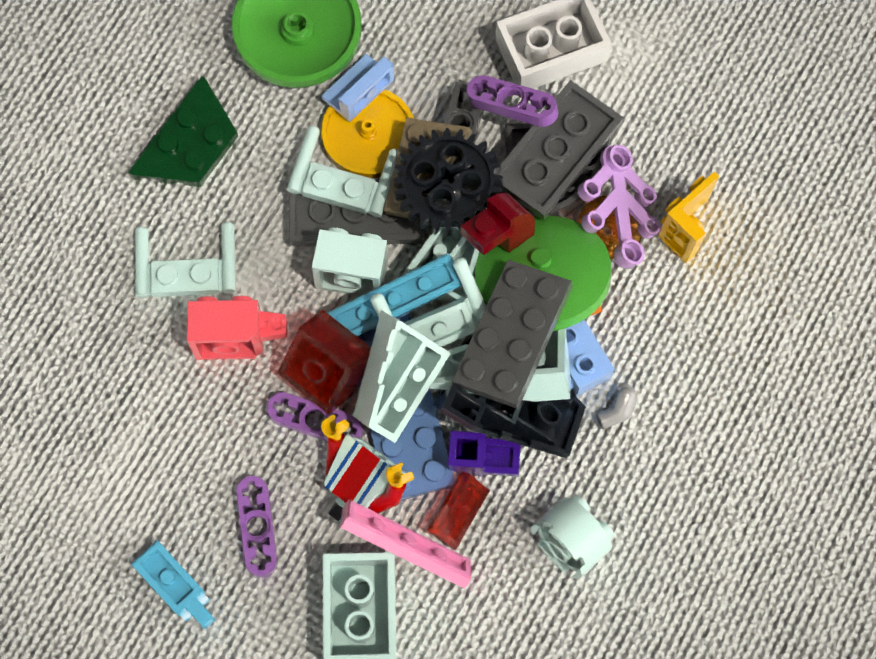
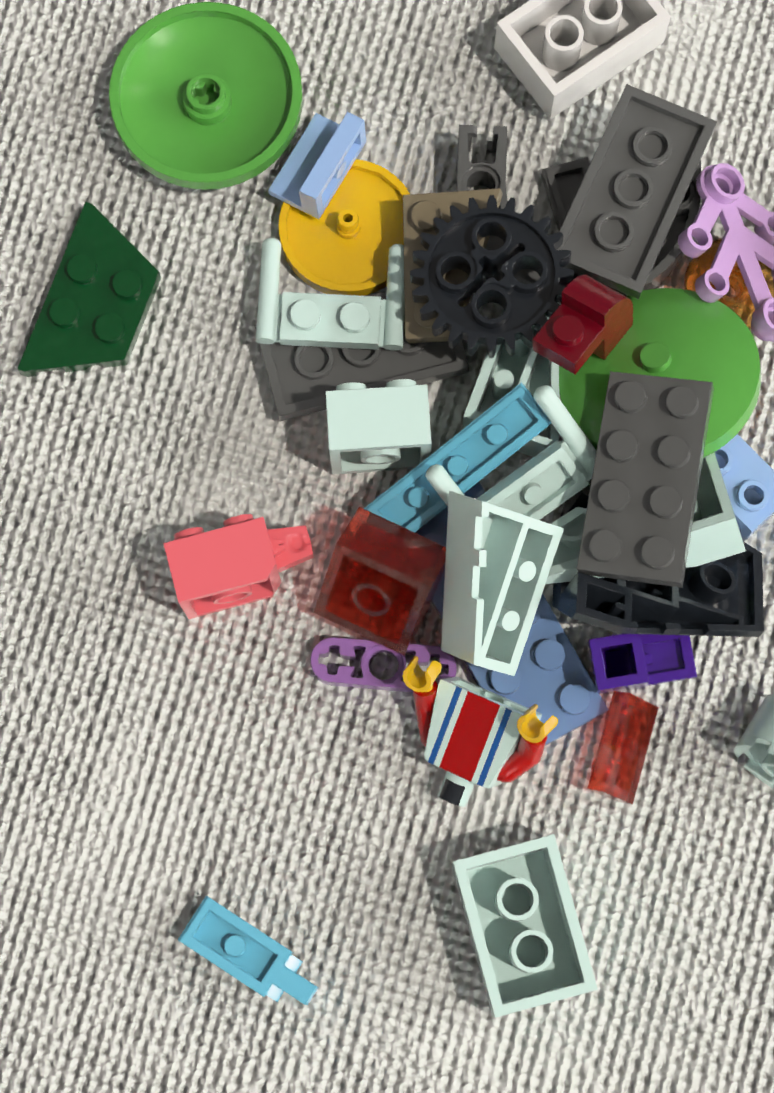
camera: 10 degrees left, 5 degrees up
(185, 276) = (138, 501): light aqua plate -> none
(244, 502) = (315, 809): medium lavender beam -> none
(406, 543) = (565, 816): bright pink tile -> none
(522, 111) = (537, 119): medium lavender beam -> none

